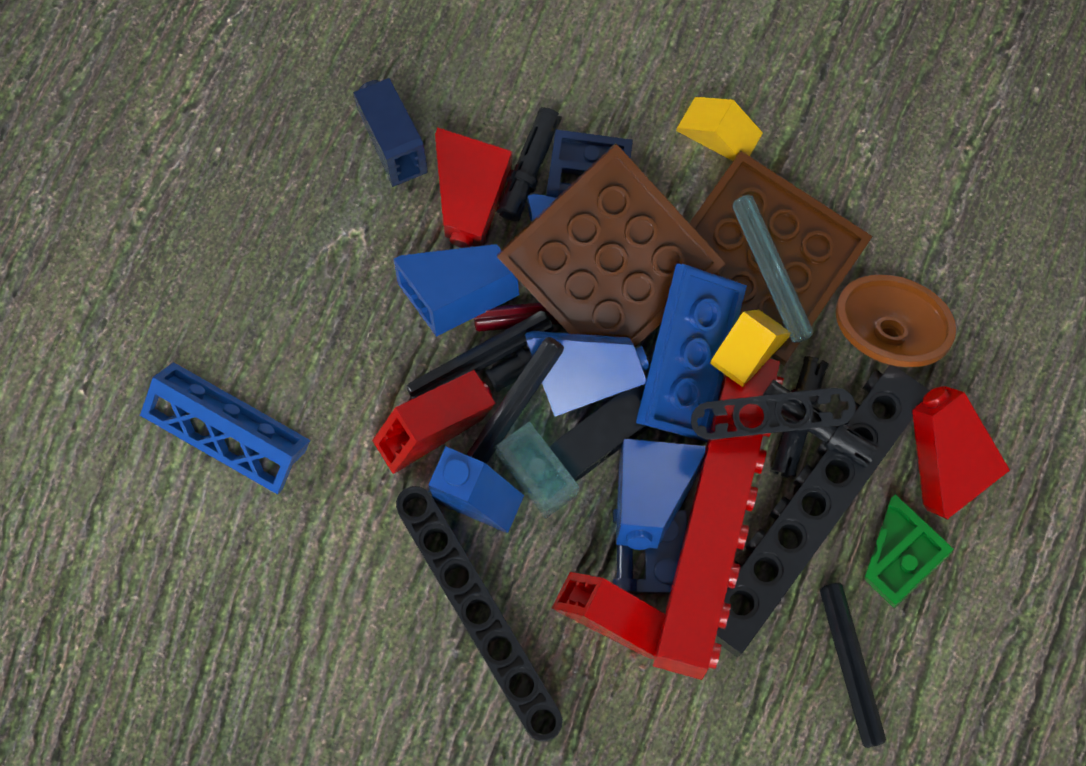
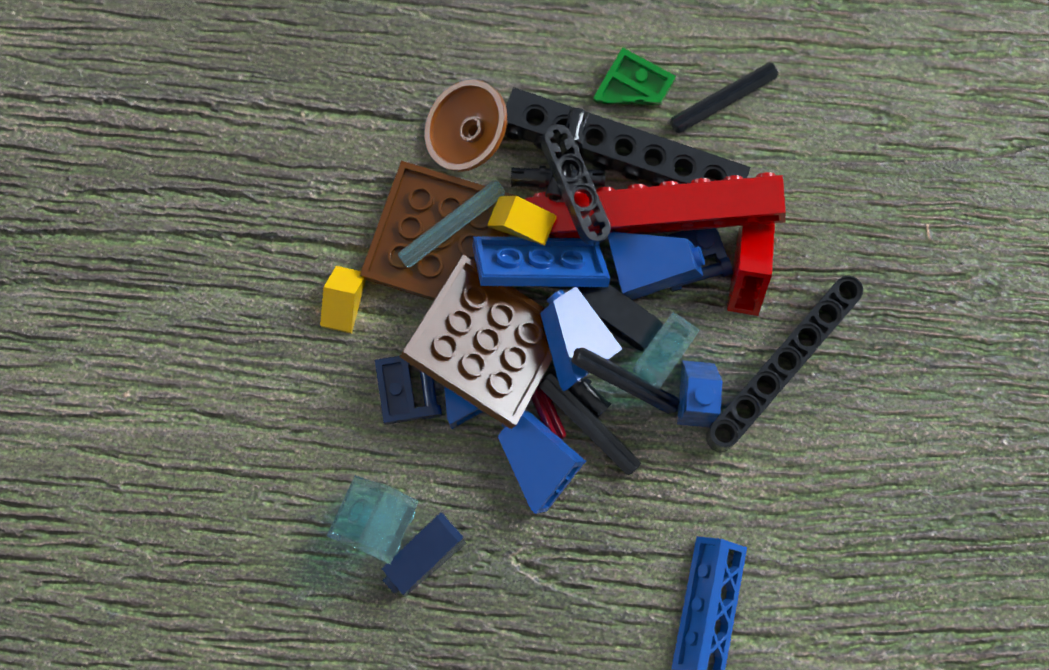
camera: 105 degrees left, 0 degrees up
(432, 420) = (653, 442): red slope -> none
(445, 81) = (373, 519): none -> clear light blue brick
(470, 185) = (452, 476): red slope -> none
(523, 177) = (417, 436): black pin -> none
(953, 451) = (554, 62): red slope -> none

